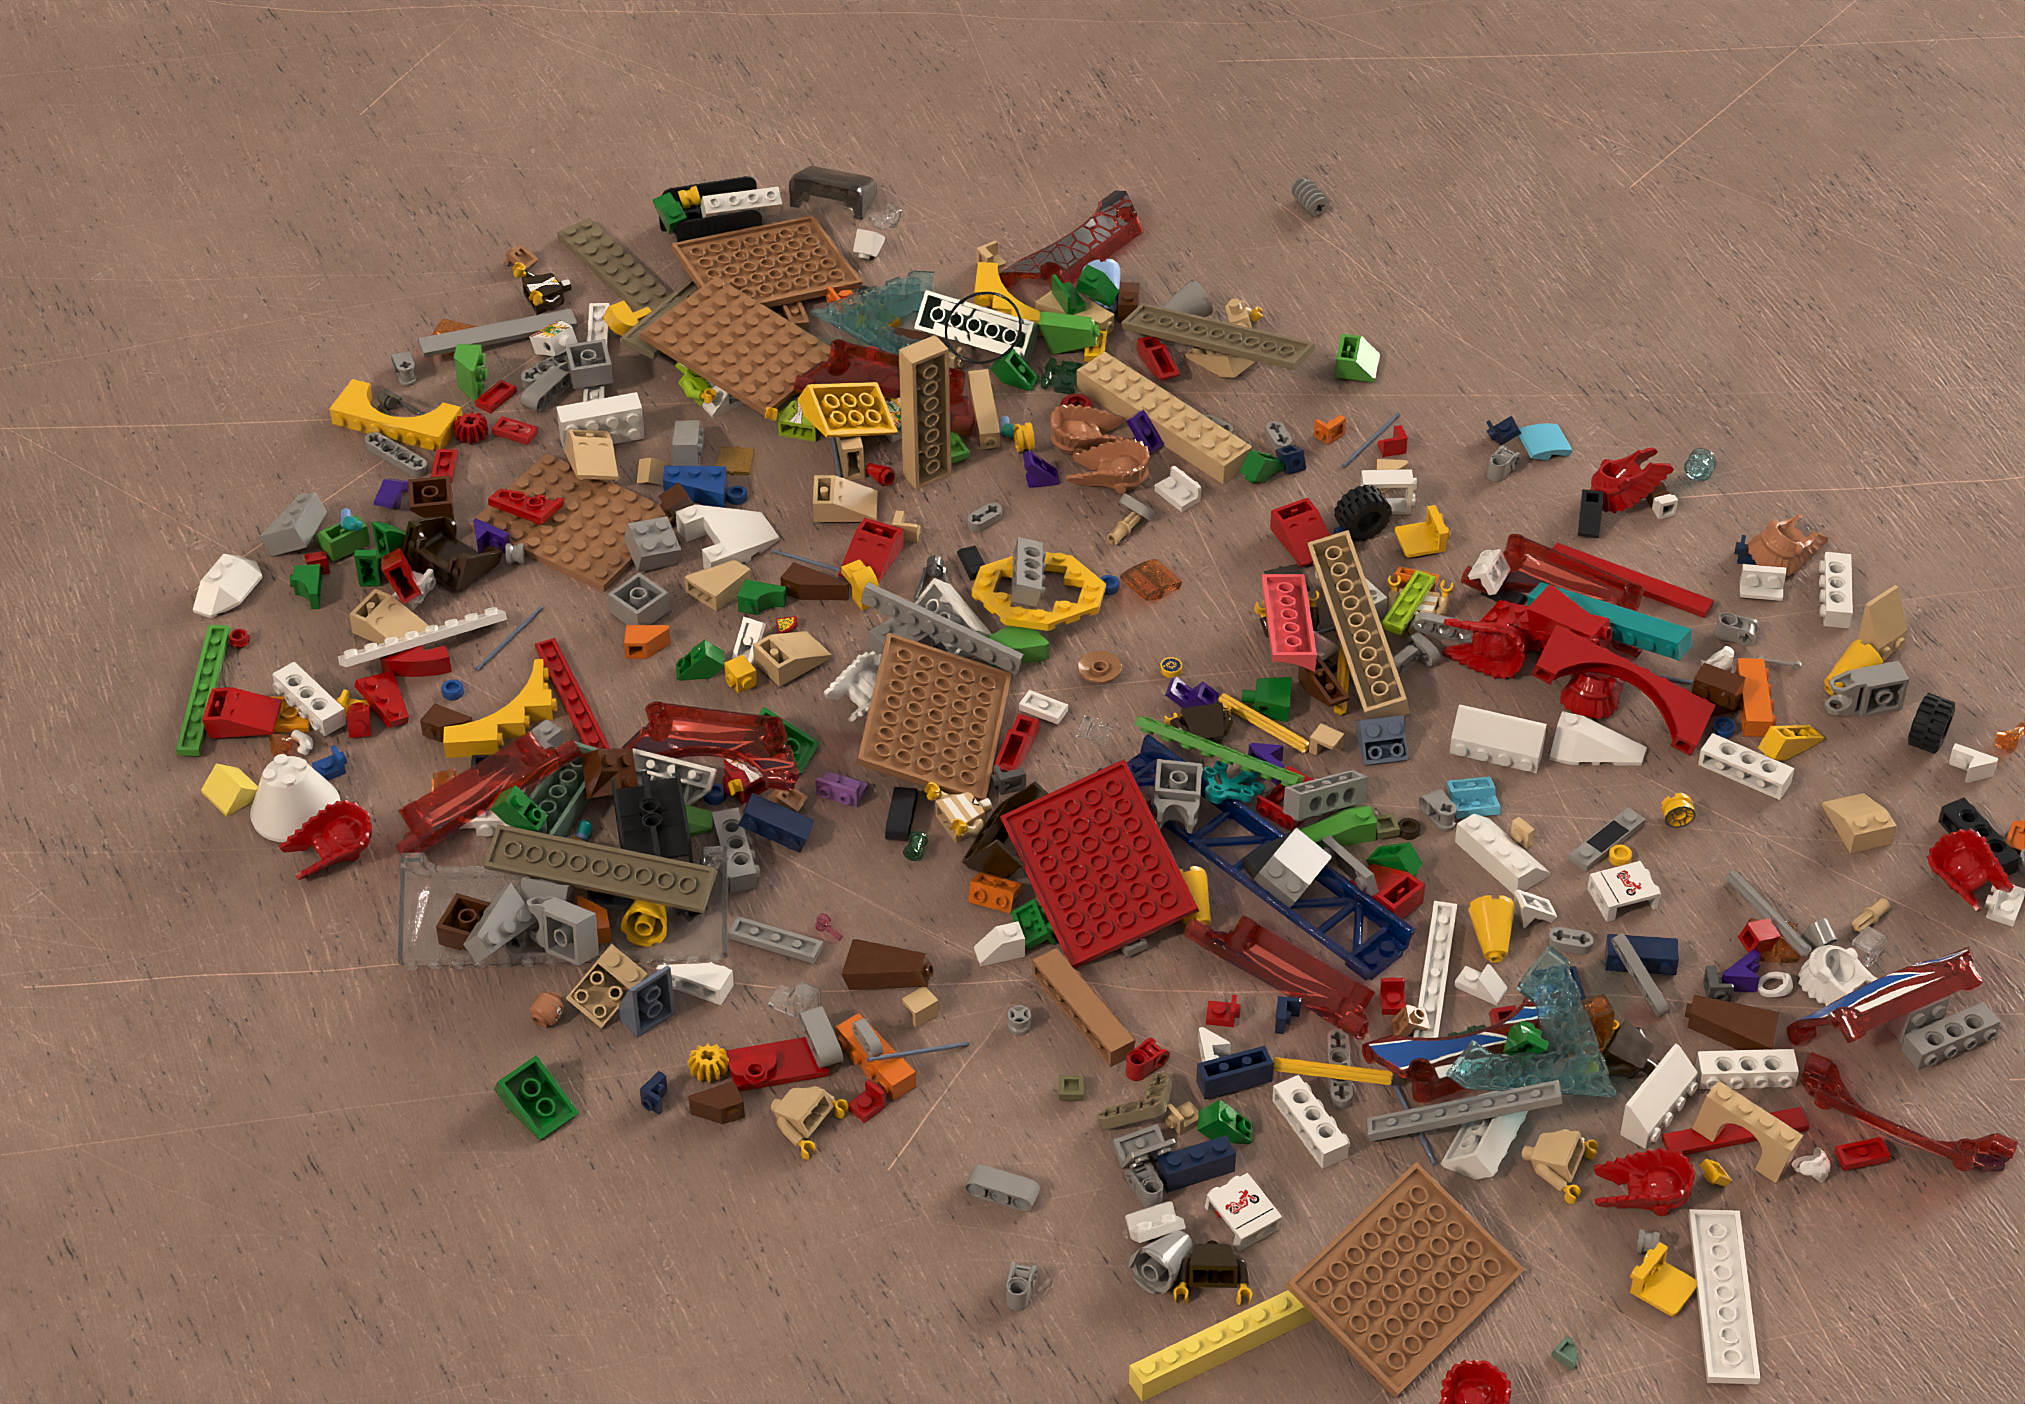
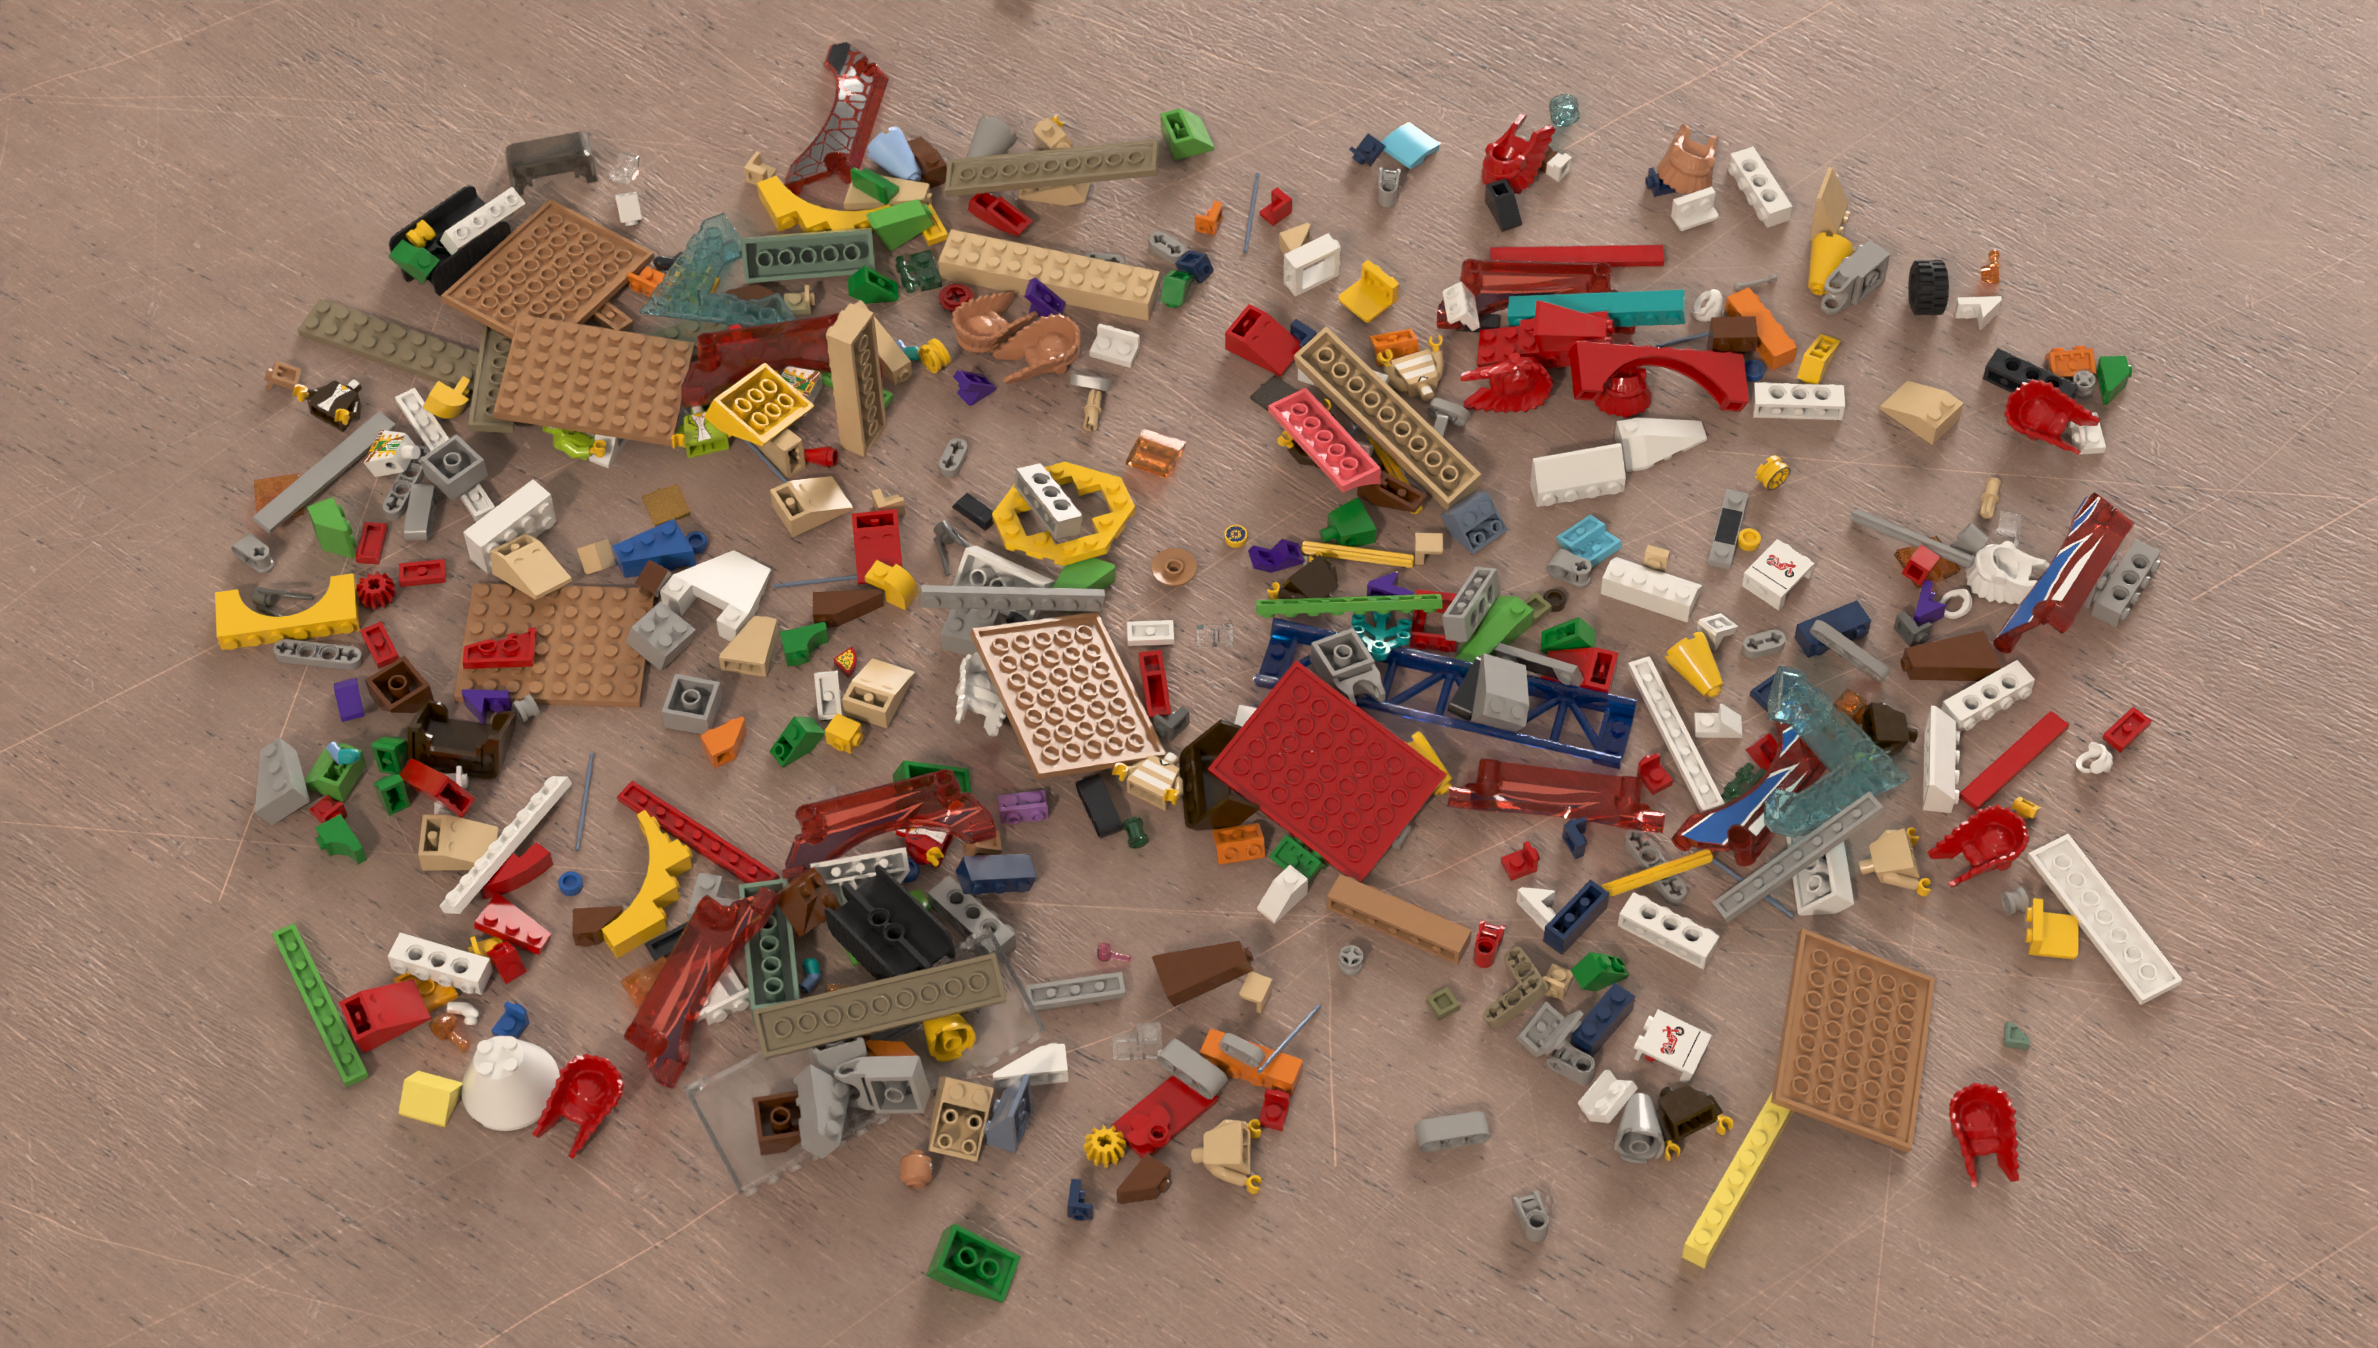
camera: 30 degrees left, 10 degrees up
(226, 585) = (257, 880): white wedge -> none
(239, 638) = (310, 927): red plate -> none
(518, 810) = (752, 983): green slope -> none
(688, 443) = (614, 511): light grey wedge -> none
(994, 359) = (829, 295): black piece -> none
(1097, 286) = (897, 162): green slope -> none
(1112, 584) = (1120, 471): blue tile -> none
(1363, 512) = (1308, 296): black tyre -> none
(1408, 602) = (1410, 370): lime tile -> none
(1408, 1019) = (1686, 792): medium nougat bracket -> none
(1427, 627) = (1451, 383): light grey beam -> none
(1524, 1039) = (1809, 766): green arch -> none
(1734, 628) = (1700, 266): light grey piece -> none
(1775, 1137) = (2011, 745): tan arch -> none
(1986, 1153) = (2213, 686): clear red panel -> none

